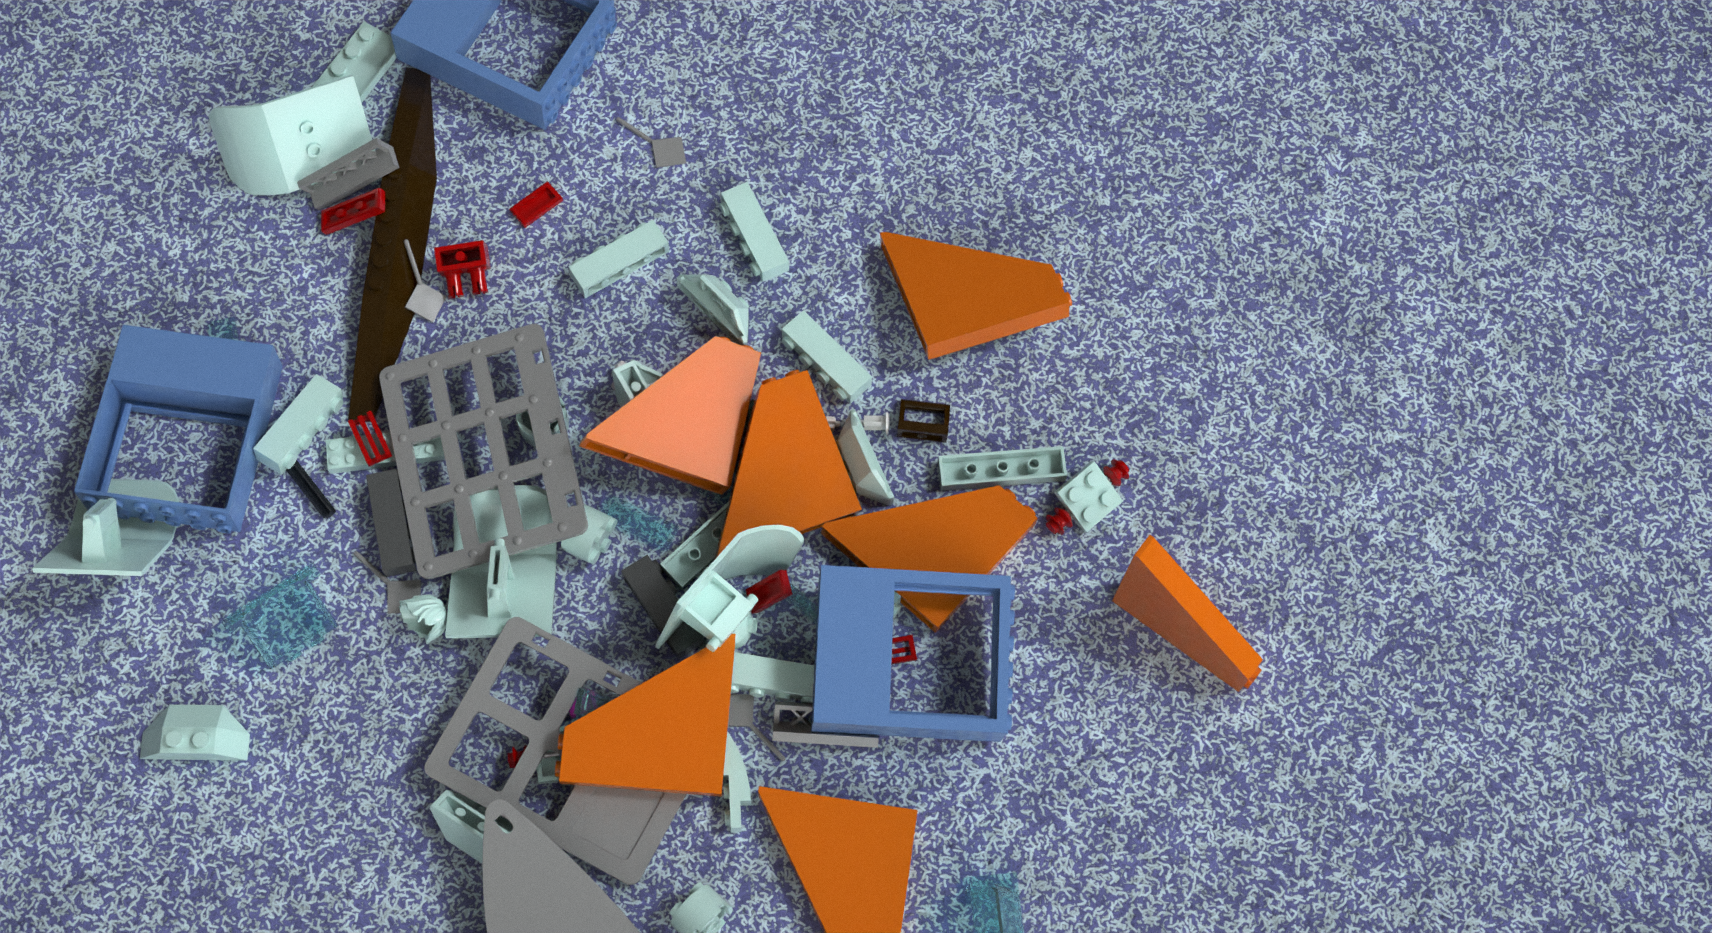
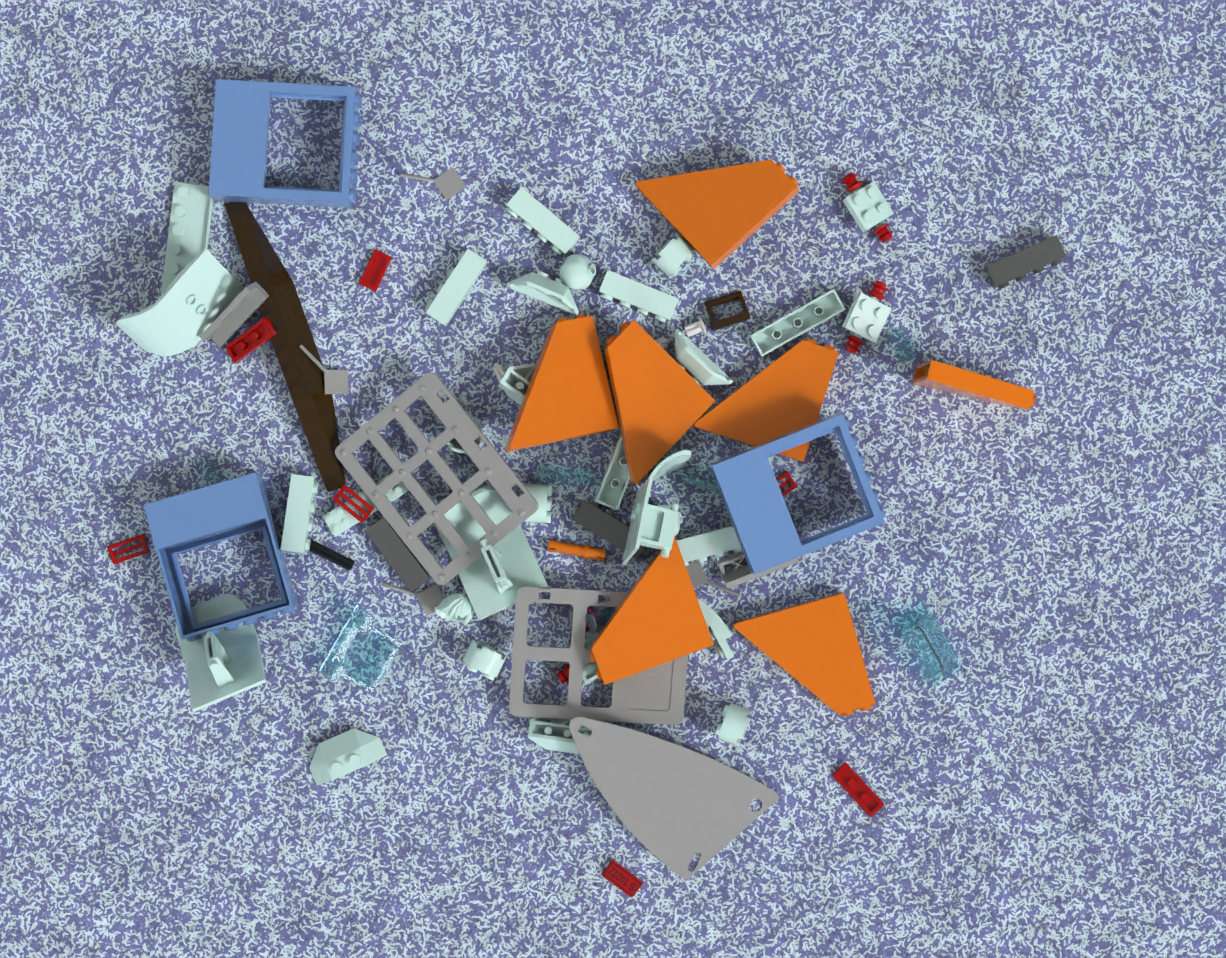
camera: 15 degrees left, 20 degrees up
(80, 389) = (144, 544): none -> red tile
(428, 690) = (484, 658): none -> light aqua brick
(460, 259) = (348, 339): red brick -> none
(618, 620) = (577, 550): none -> orange pin
(767, 298) = (577, 272): none -> light aqua plant
(770, 590) = (678, 487): red tile -> none
(887, 327) = (673, 254): none -> light aqua brick
(1119, 552) = (905, 348): none -> clear light blue plate
(1143, 375) = (868, 207): none -> light aqua plate
(1309, 516) = (1025, 261): none -> dark grey brick

